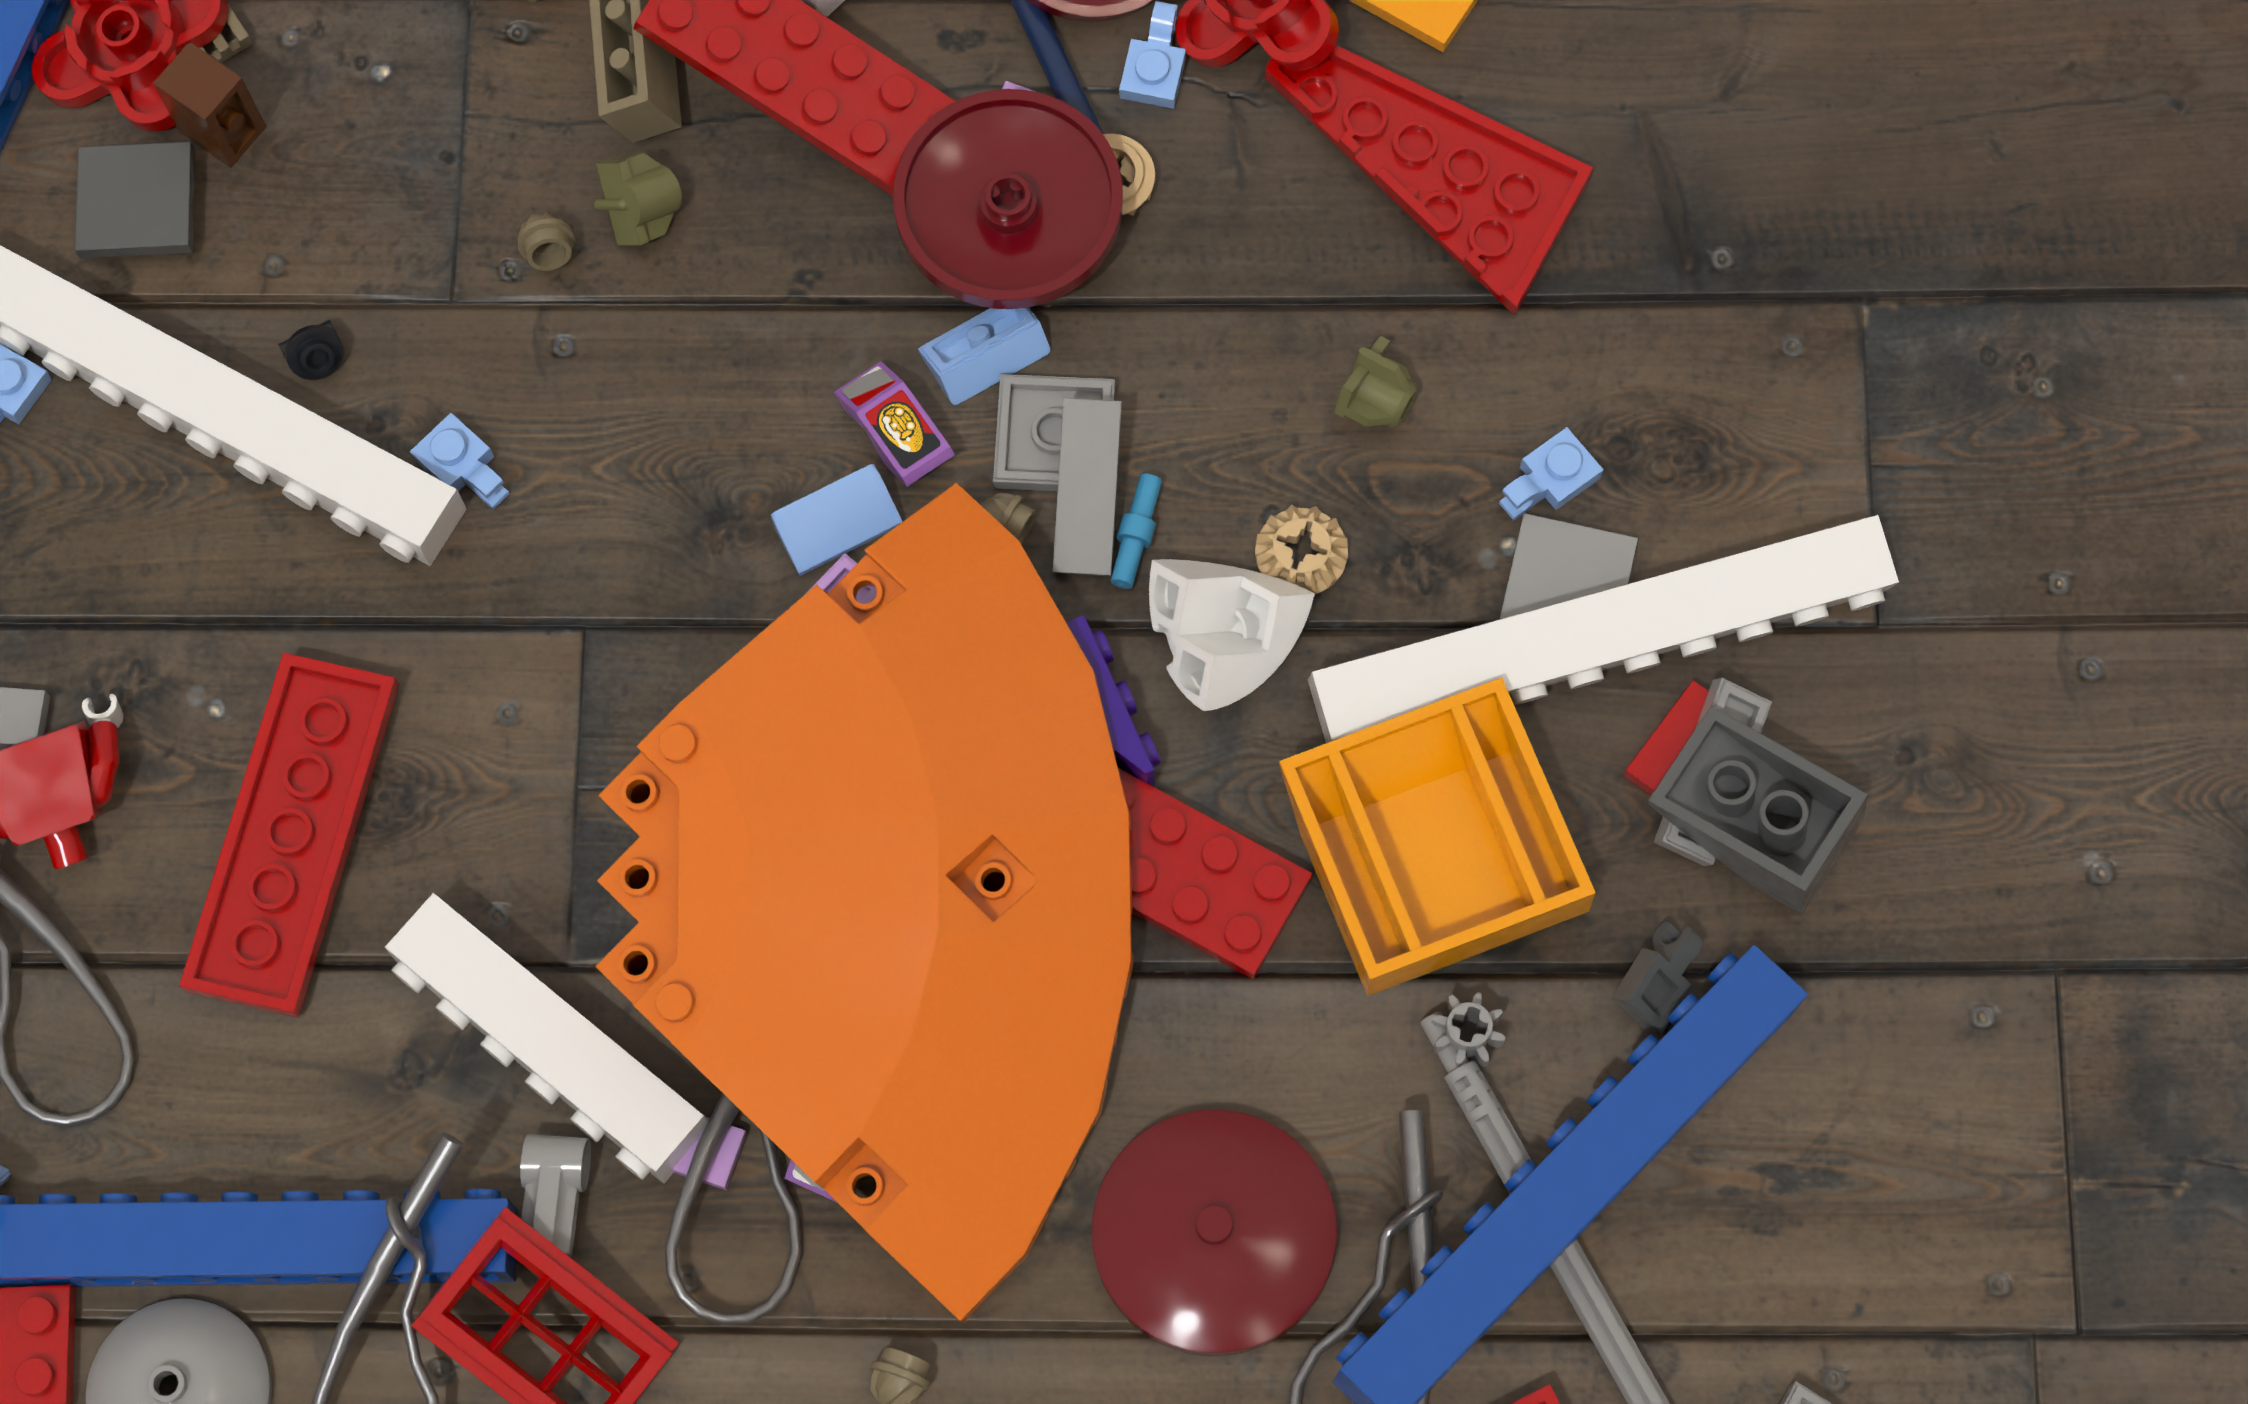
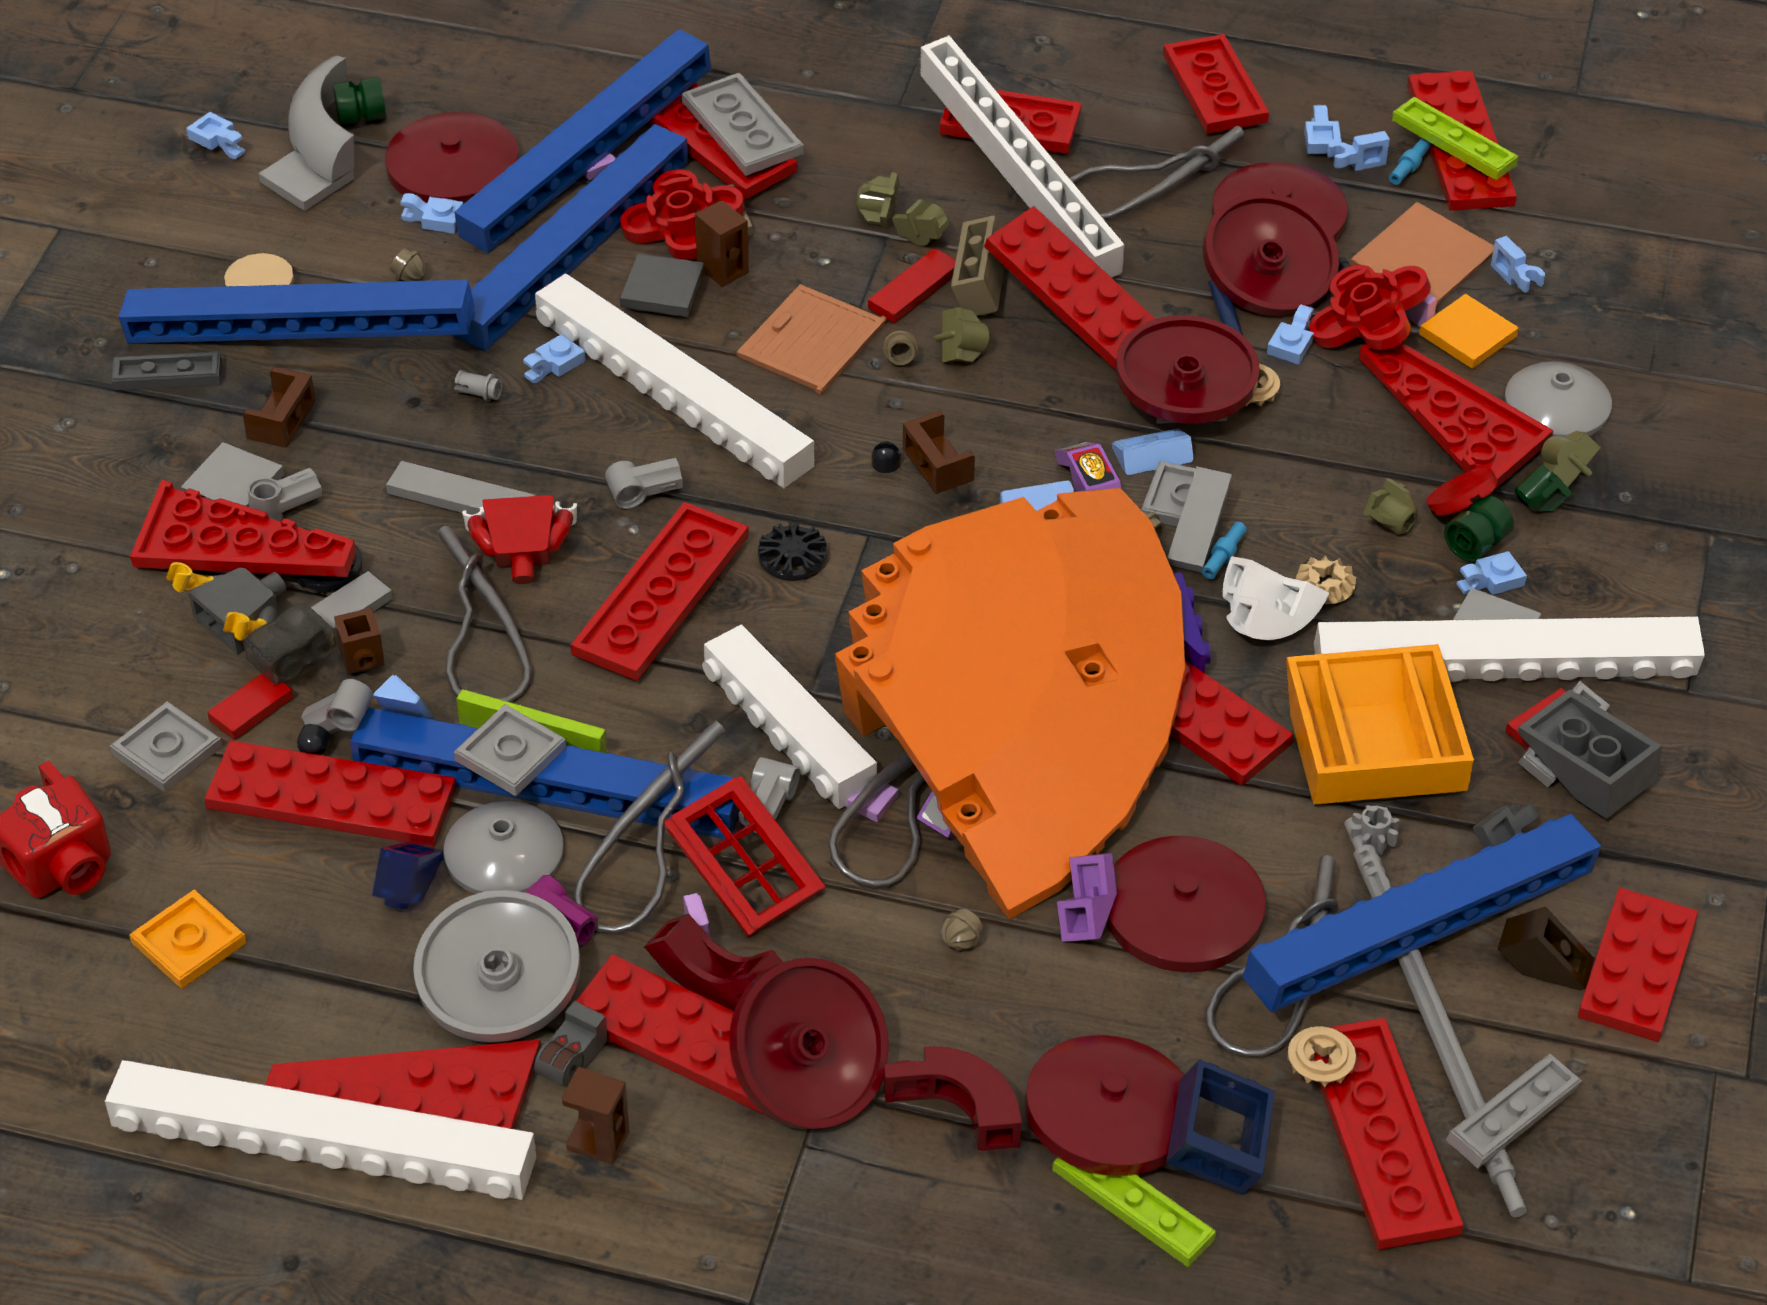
camera: 10 degrees right, 25 degrees down
(141, 1239) = (510, 749): none -> light grey tile
(160, 1158) = (476, 709): none -> lime tile
(194, 628) = (632, 484): none -> light grey piece
(313, 351) = (745, 371): black plate -> none
(399, 244) = (811, 338): none -> nougat piece
(460, 459) = (825, 440): light blue plate -> none
(474, 698) = (792, 551): none -> black wheel
(535, 96) = (913, 285): none -> red tile
(575, 478) = (885, 457): none -> black hinge
(653, 448) = (934, 455): none -> reddish brown panel
(1077, 1291) = (1093, 898): none -> medium lavender slope
(1477, 336) = (1458, 492): none -> red tile
(1519, 394) = (1478, 528): none -> dark green wheel
(1582, 115) = (1560, 397): none -> light grey dish
(1596, 293) = (1542, 490): none -> dark green piece
(1623, 218) = (1569, 455): none -> olive piece
(1757, 1195) = (1545, 949): none -> dark brown slope
(1893, 1173) = (1638, 964): none -> red plate

